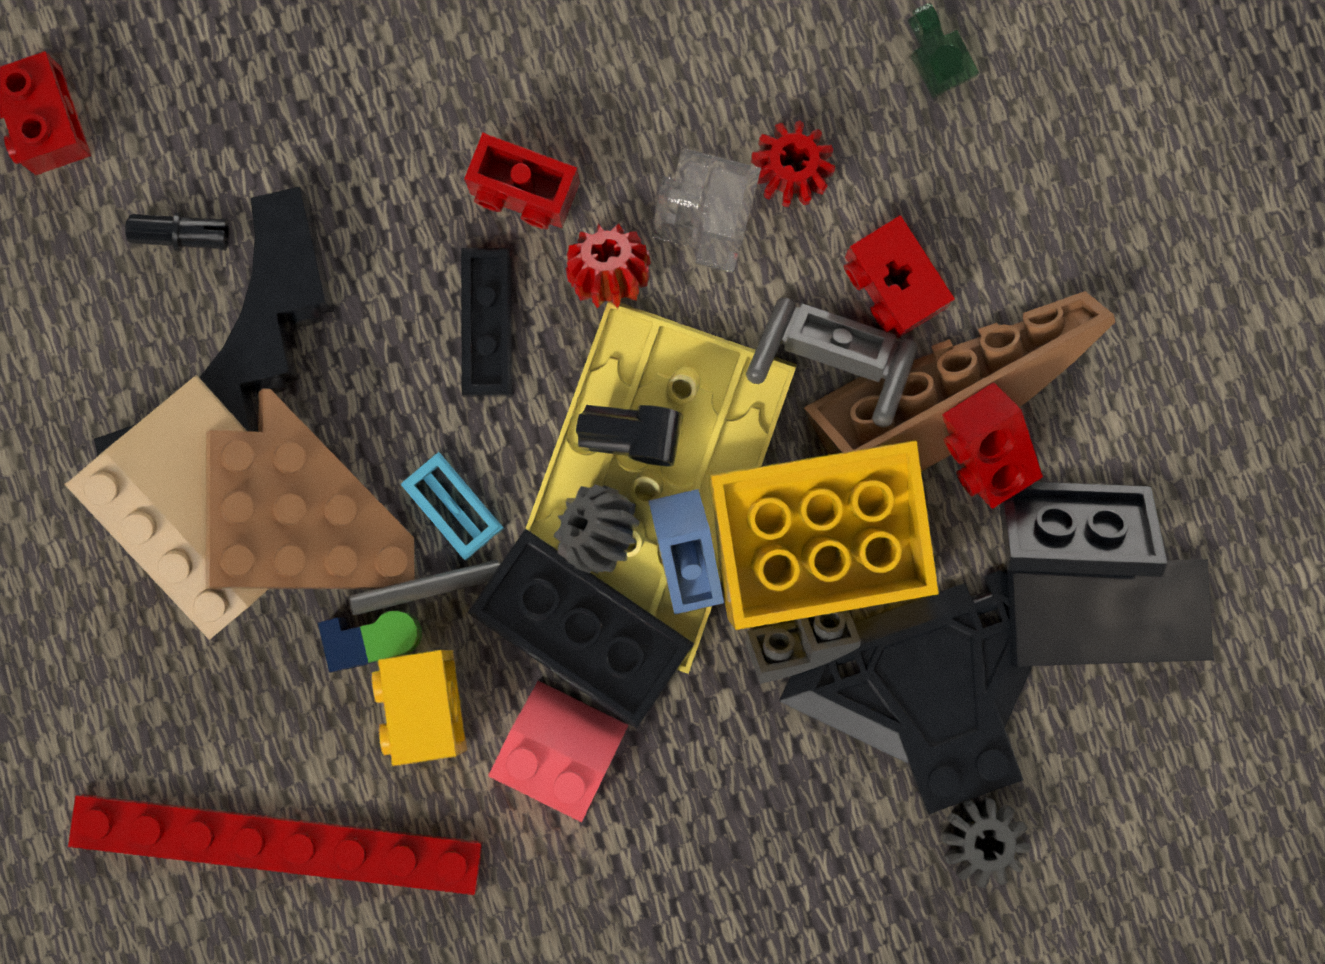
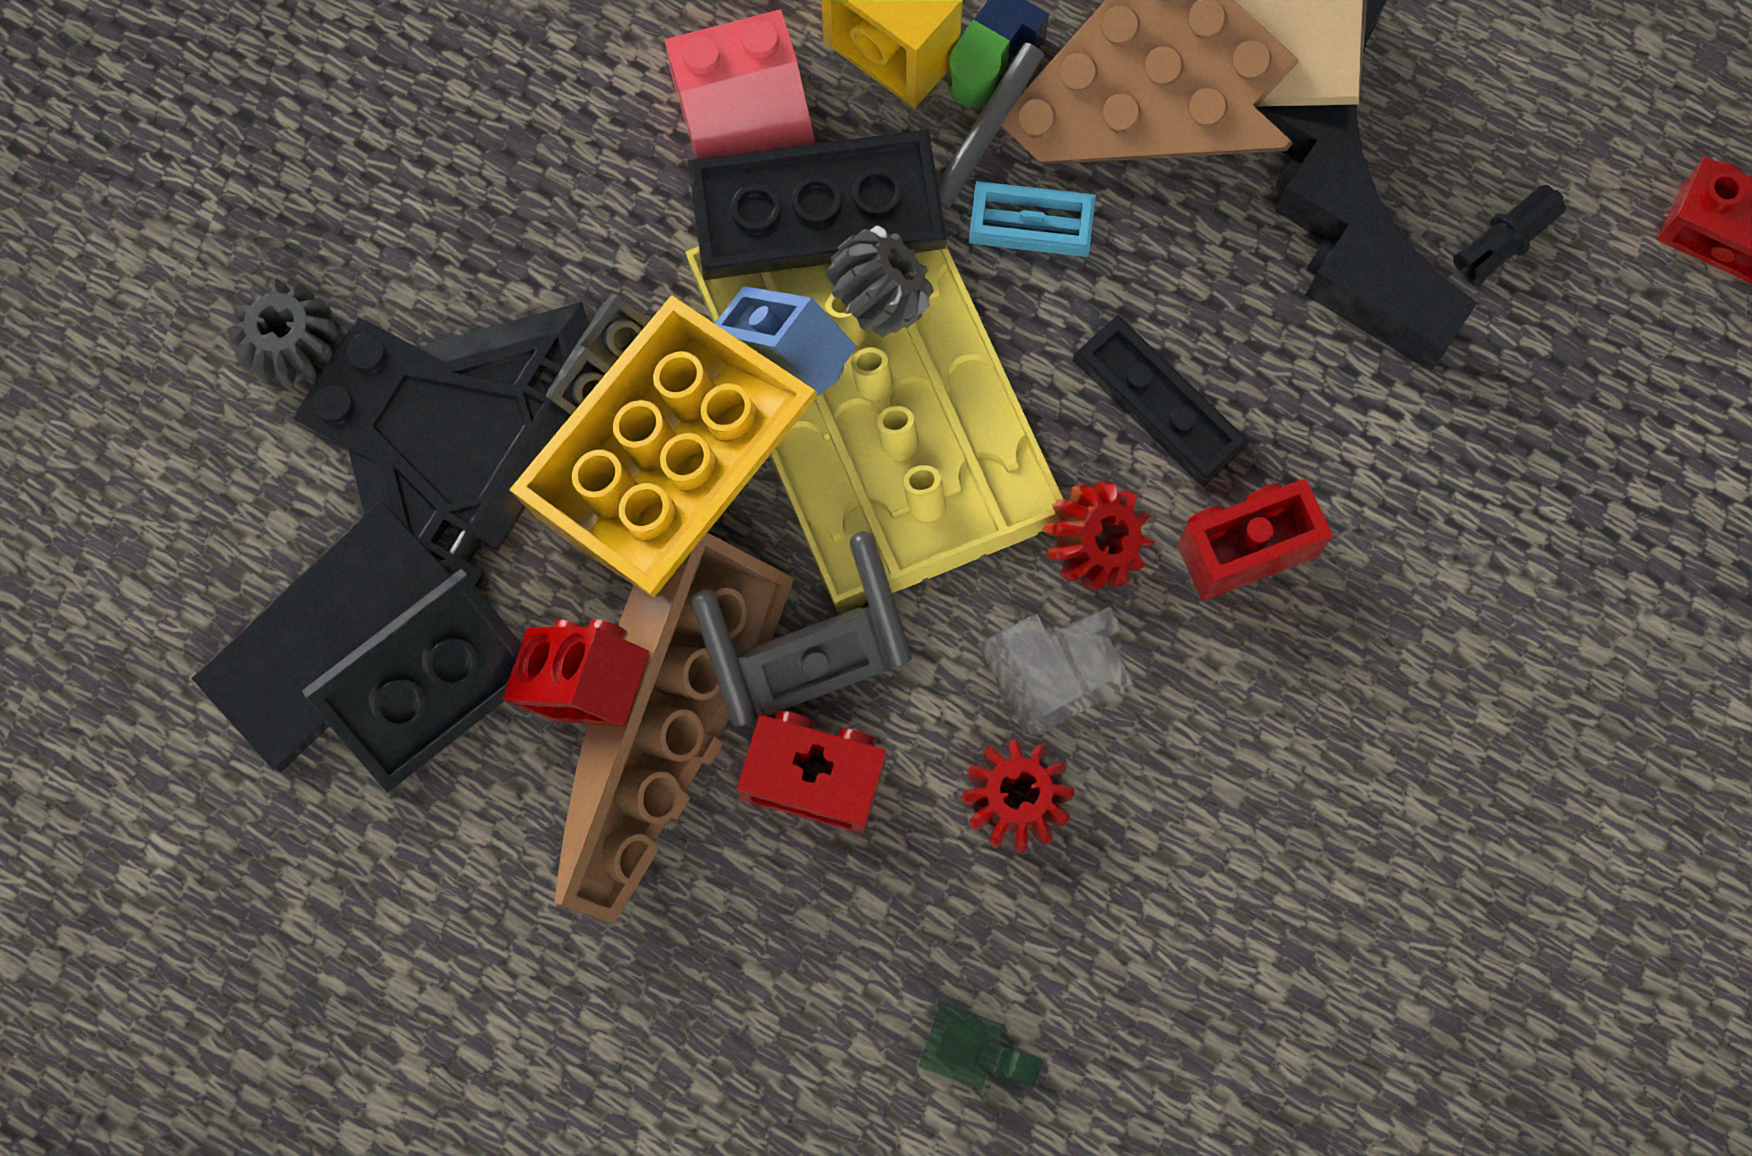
camera: 140 degrees right, 10 degrees down
(641, 434) = (918, 396): black piece -> none

